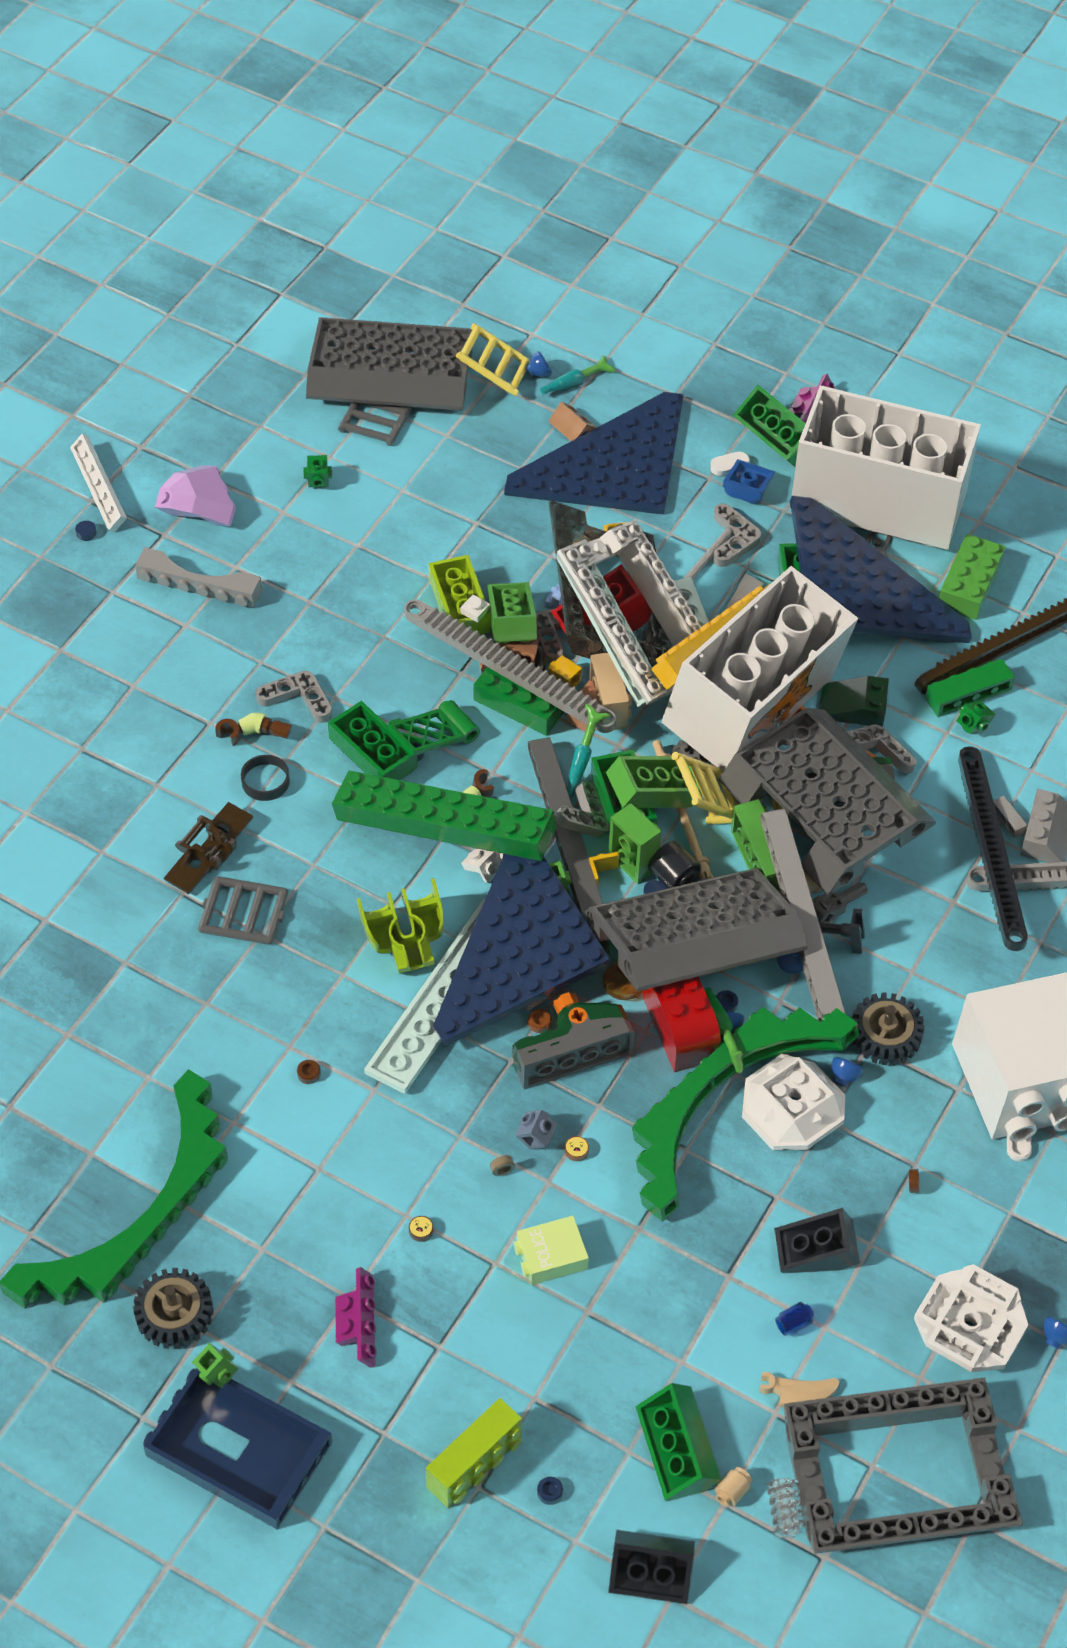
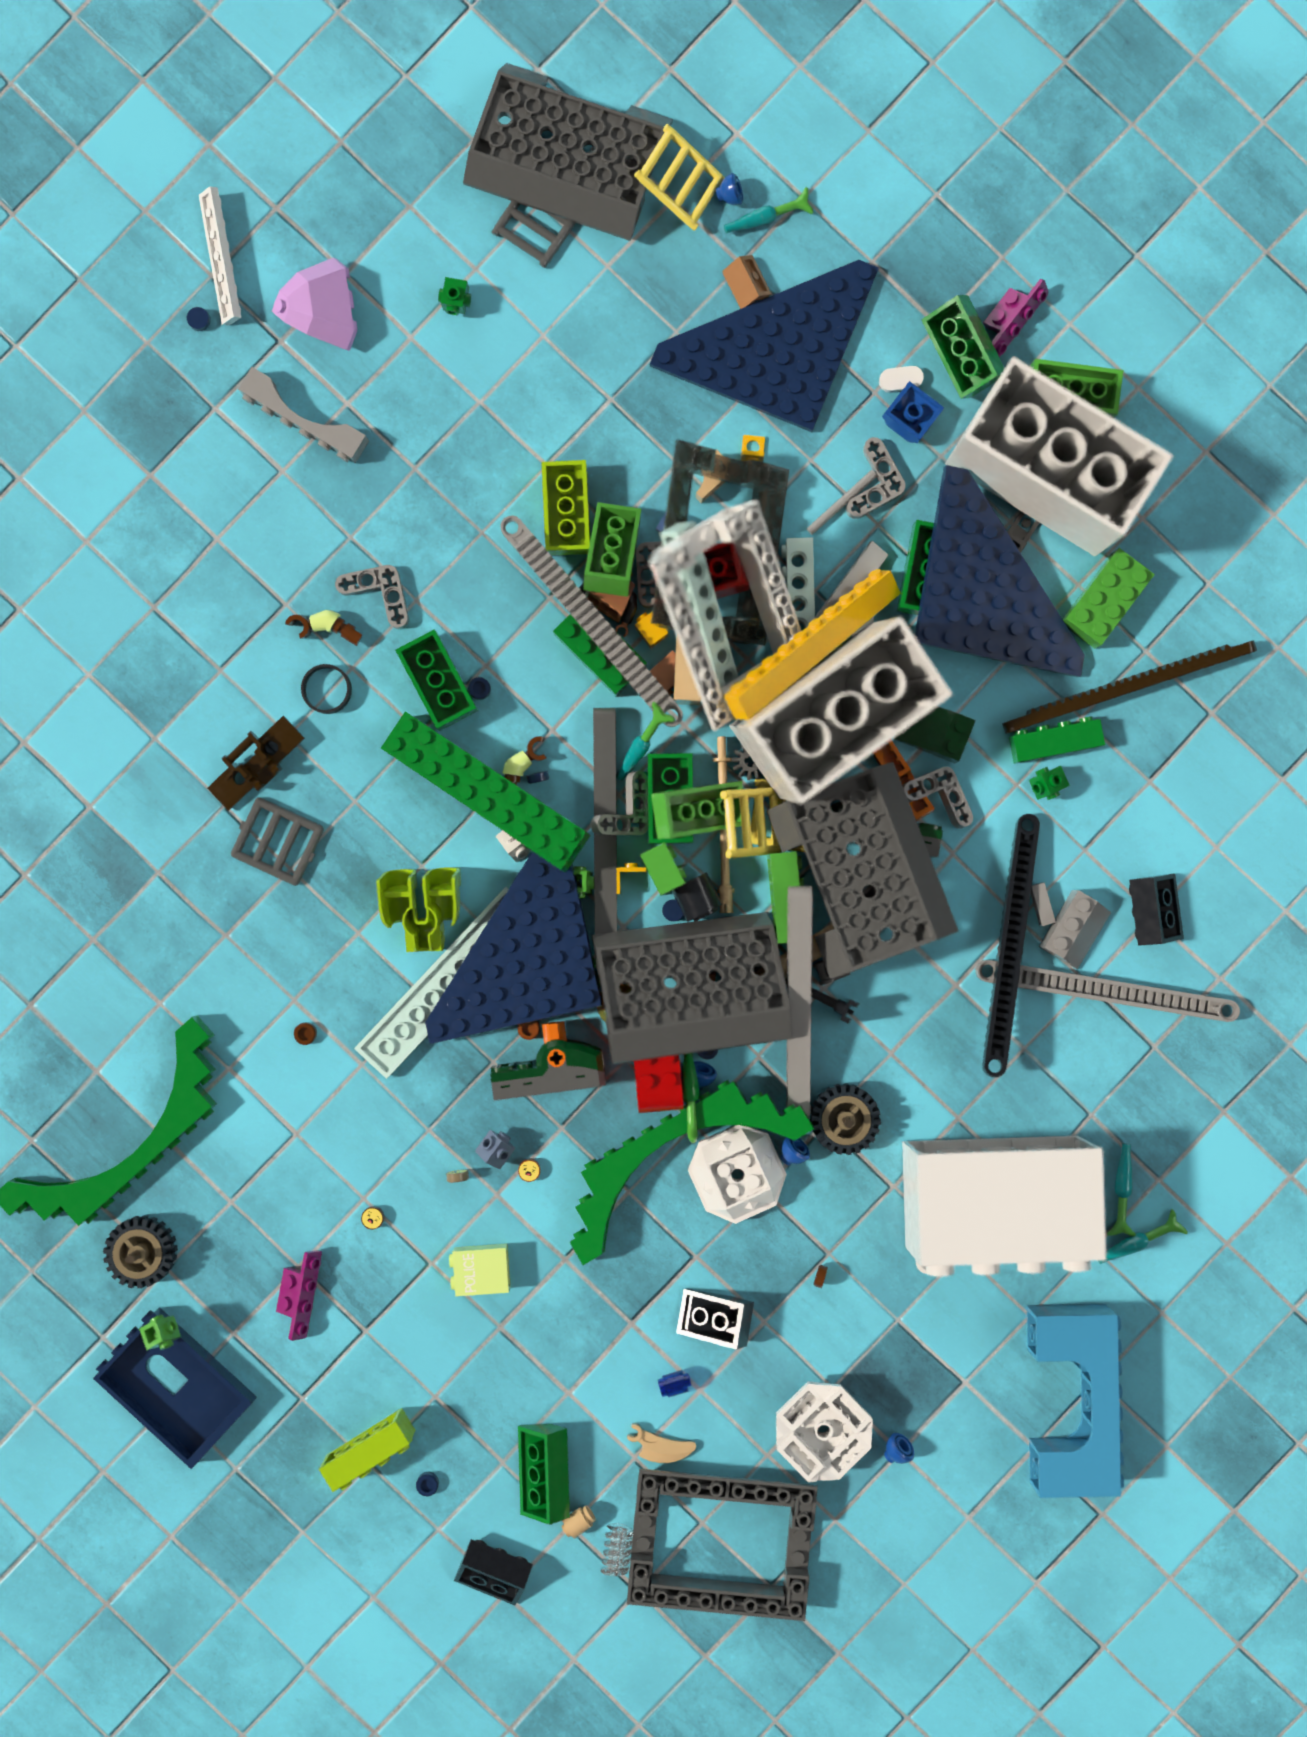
camera: 15 degrees right, 35 degrees up
(452, 720) = (525, 662): green piece -> none
(475, 608) = (575, 537): white plate -> none

